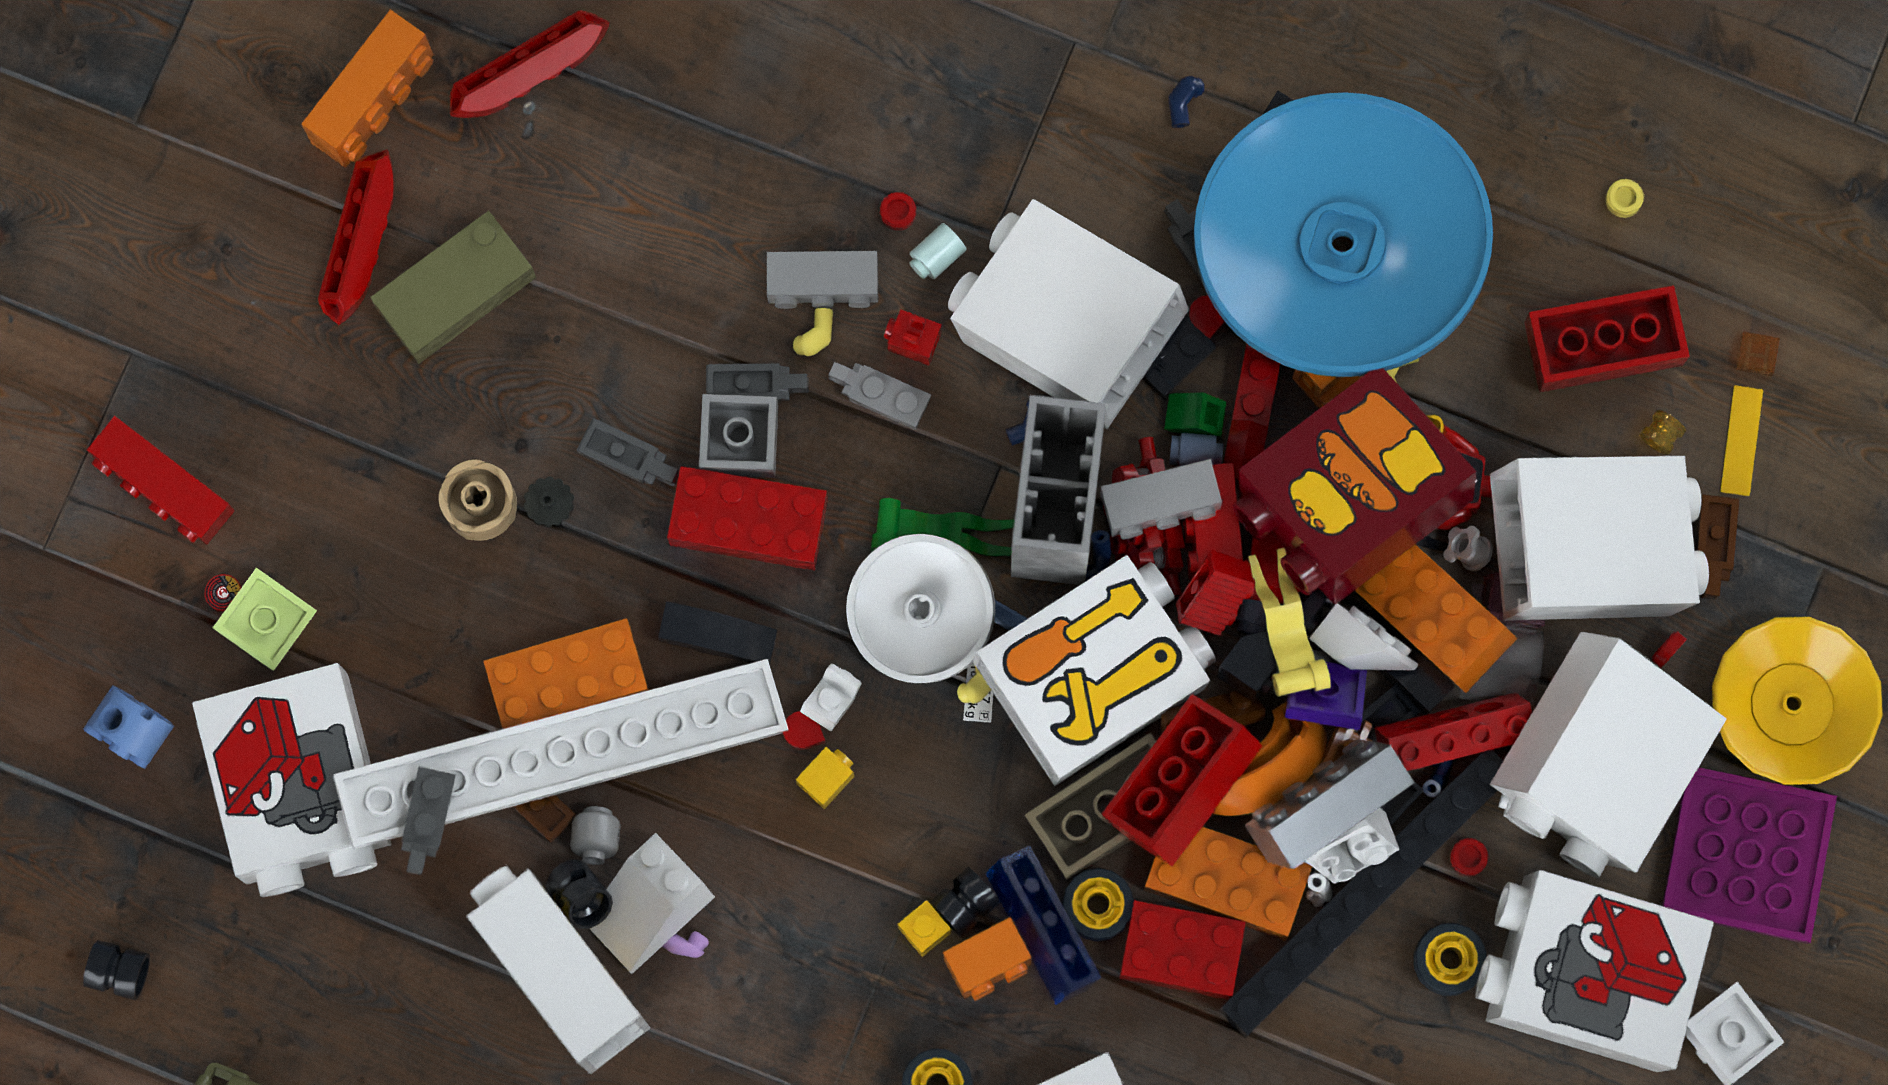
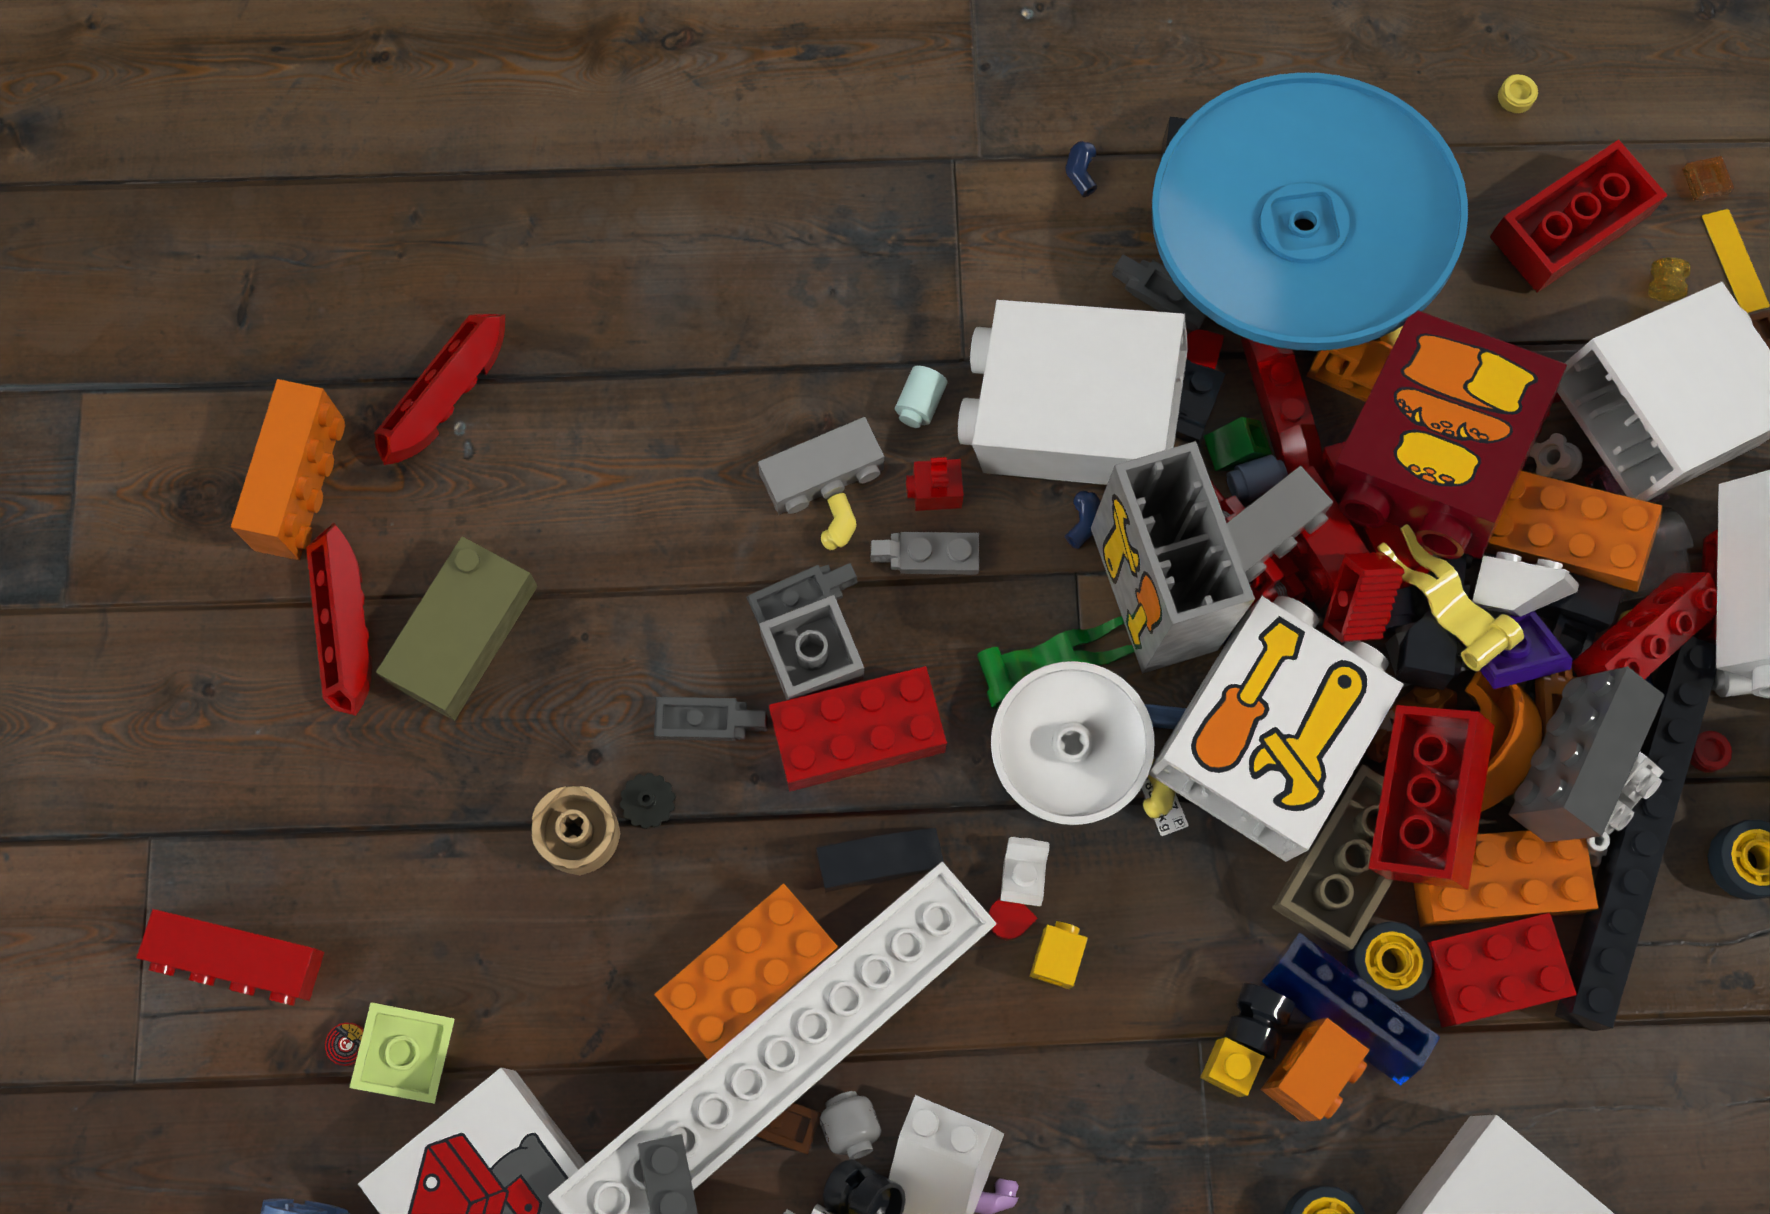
camera: 30 degrees left, 5 degrees down
(898, 211) = (863, 376): red tile -> none

